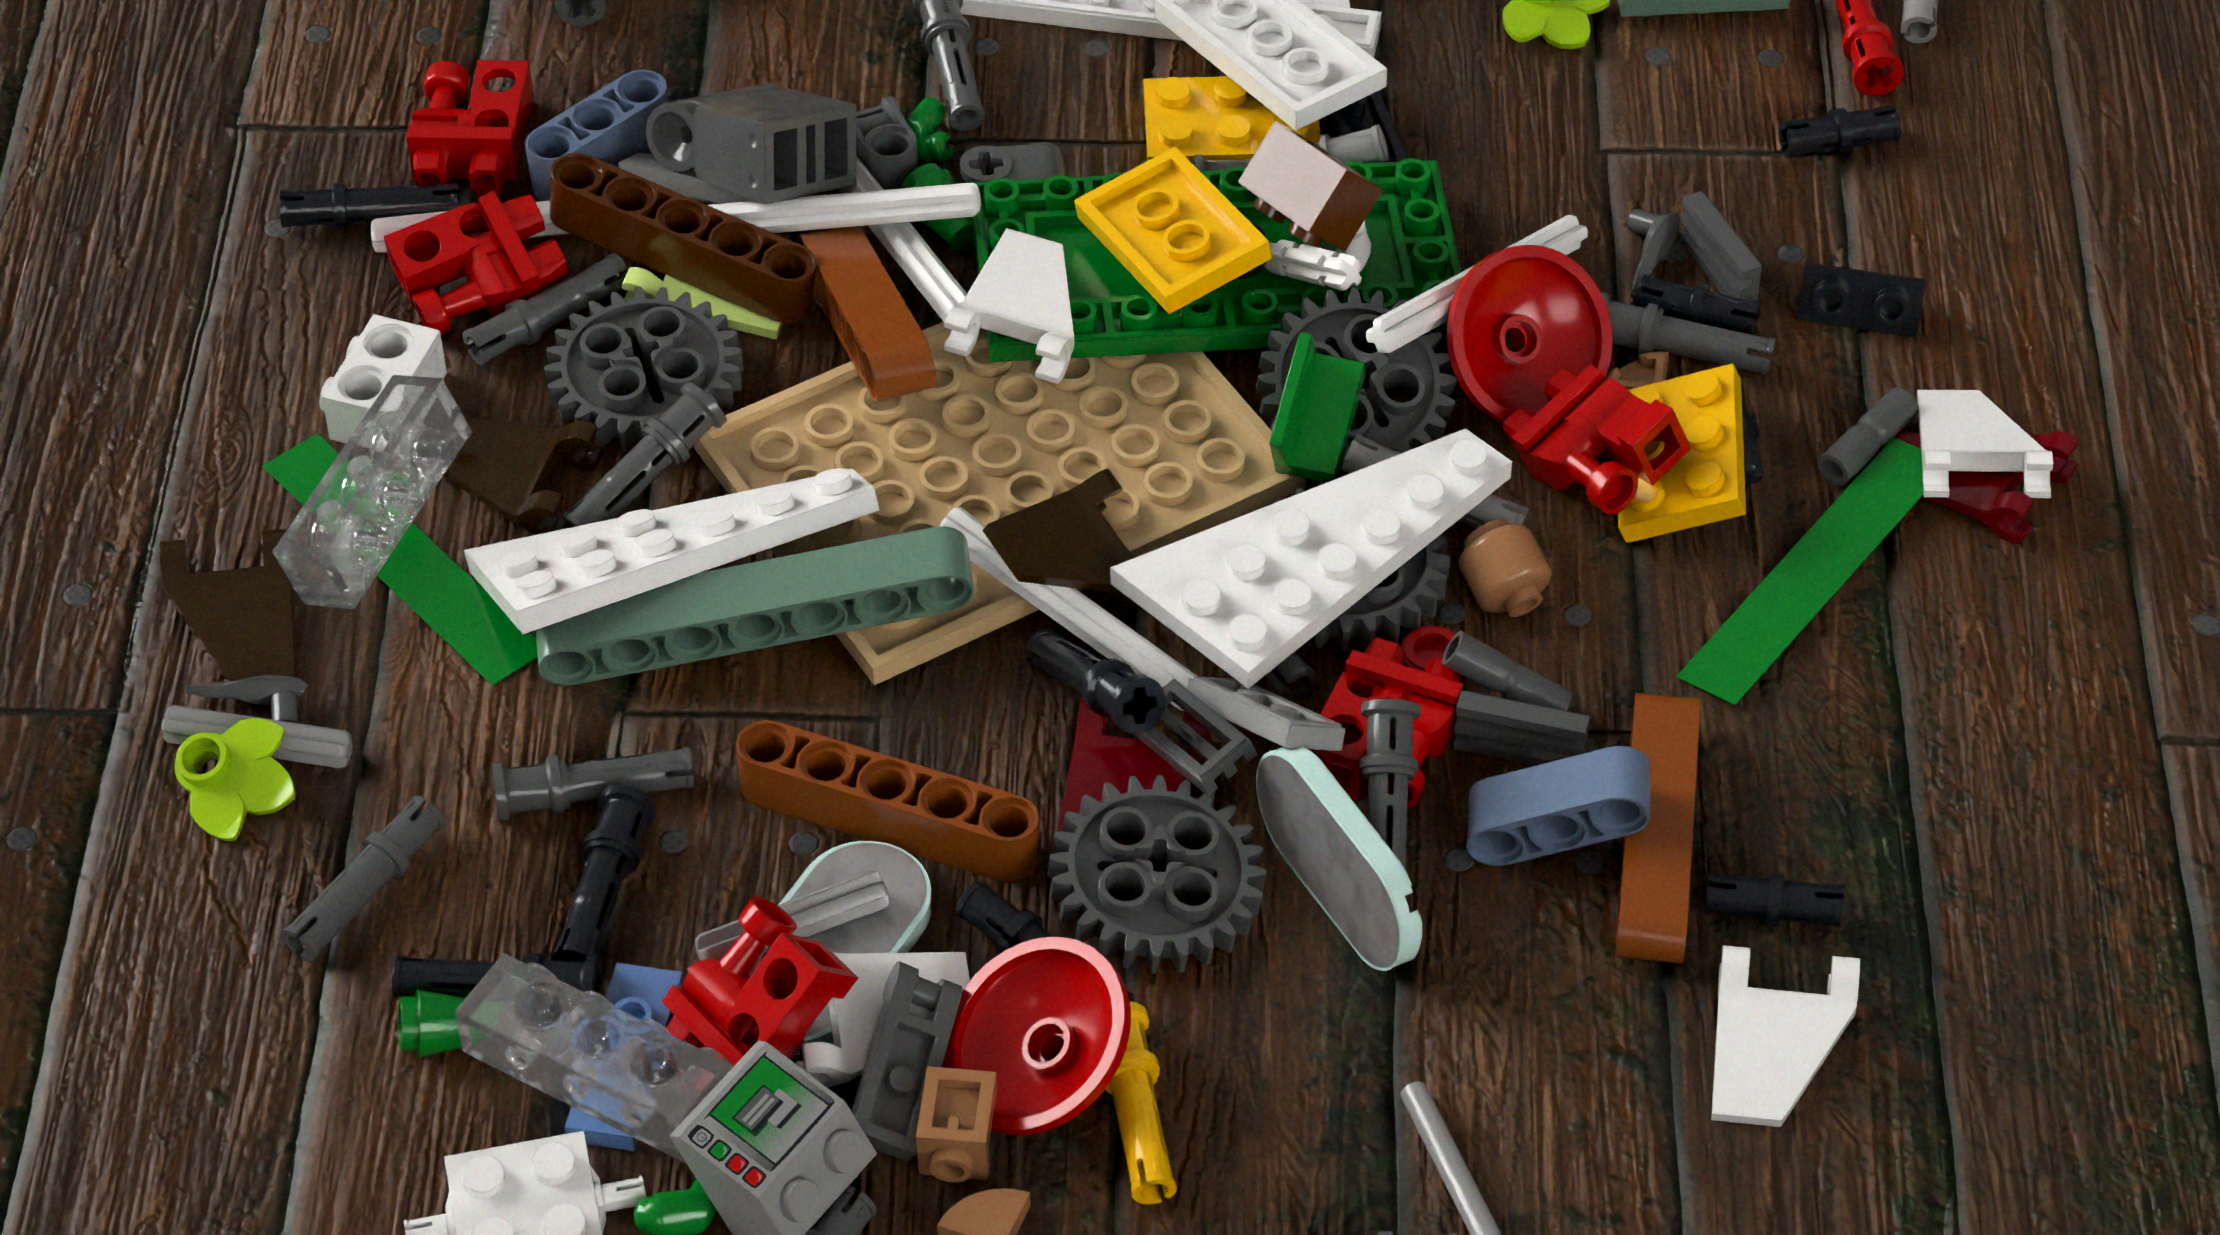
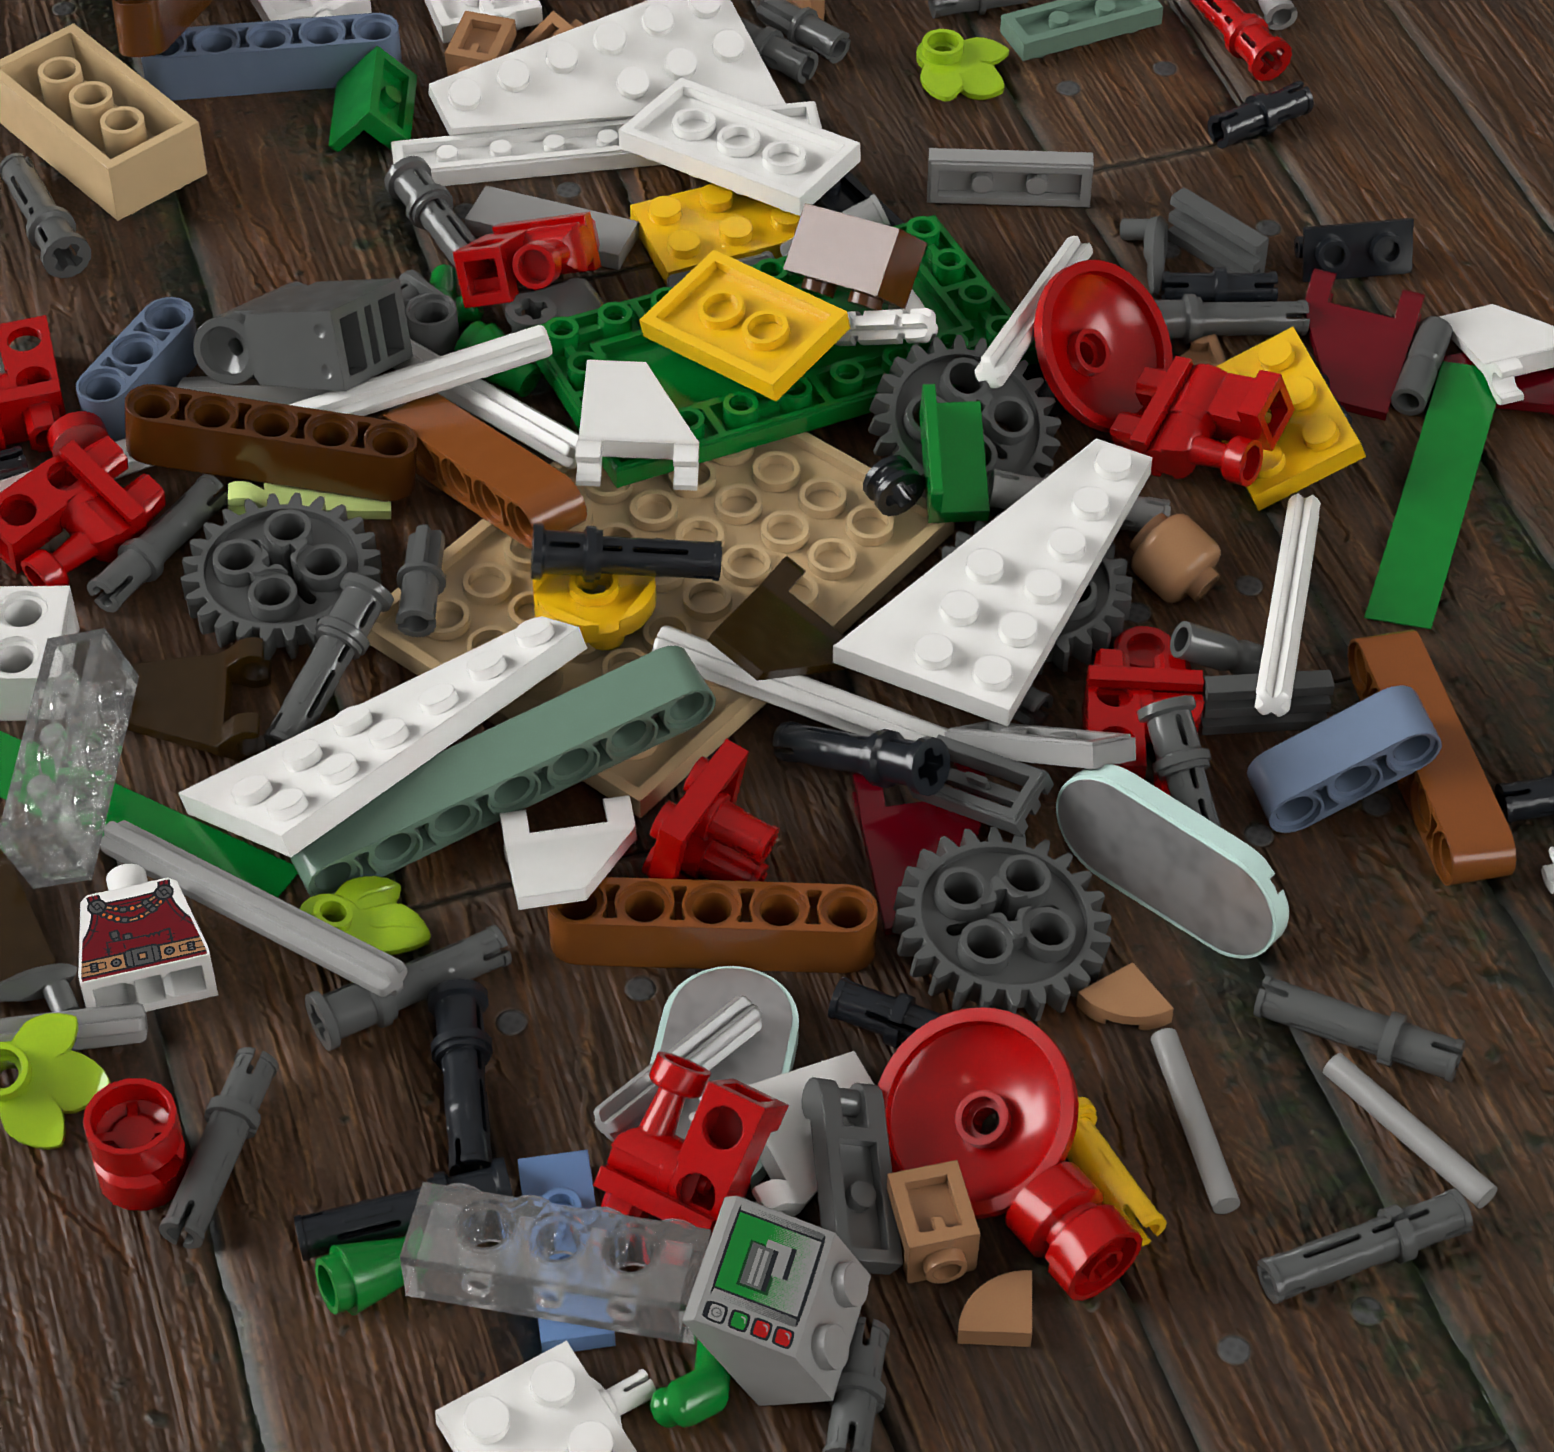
camera: 20 degrees left, 0 degrees up
(287, 852) = (136, 1143): none -> red wheel
(368, 680) = (141, 944): none -> torso
(478, 673) = (256, 909): none -> light grey axle
(515, 181) = (79, 426): none -> red tile
(580, 718) = (370, 913): none -> lime plate
(760, 407) = (421, 582): none -> dark grey axle
(768, 705) = (568, 861): none -> white flag
(915, 706) = (708, 830): none -> red plate
(920, 421) = (593, 554): none -> black pin
(924, 483) = (602, 616): none -> yellow plate
(1005, 108) = (527, 253): none -> red hips
(1059, 84) = (499, 206): none -> light grey tile
(1080, 1167) = (1065, 1222): none -> red wheel
(1244, 976) = (1126, 999): none -> medium nougat tile
(1247, 412) = (893, 485): none -> black bush
(1254, 1105) = (1195, 1121): none -> light grey bar
(1472, 1079) = (1381, 1035): none -> dark grey pin
(1537, 138) = (1009, 177): none -> light grey tile
(1583, 641) = (1287, 606): none -> white axle
(1812, 400) = (1360, 348): none -> dark red flag

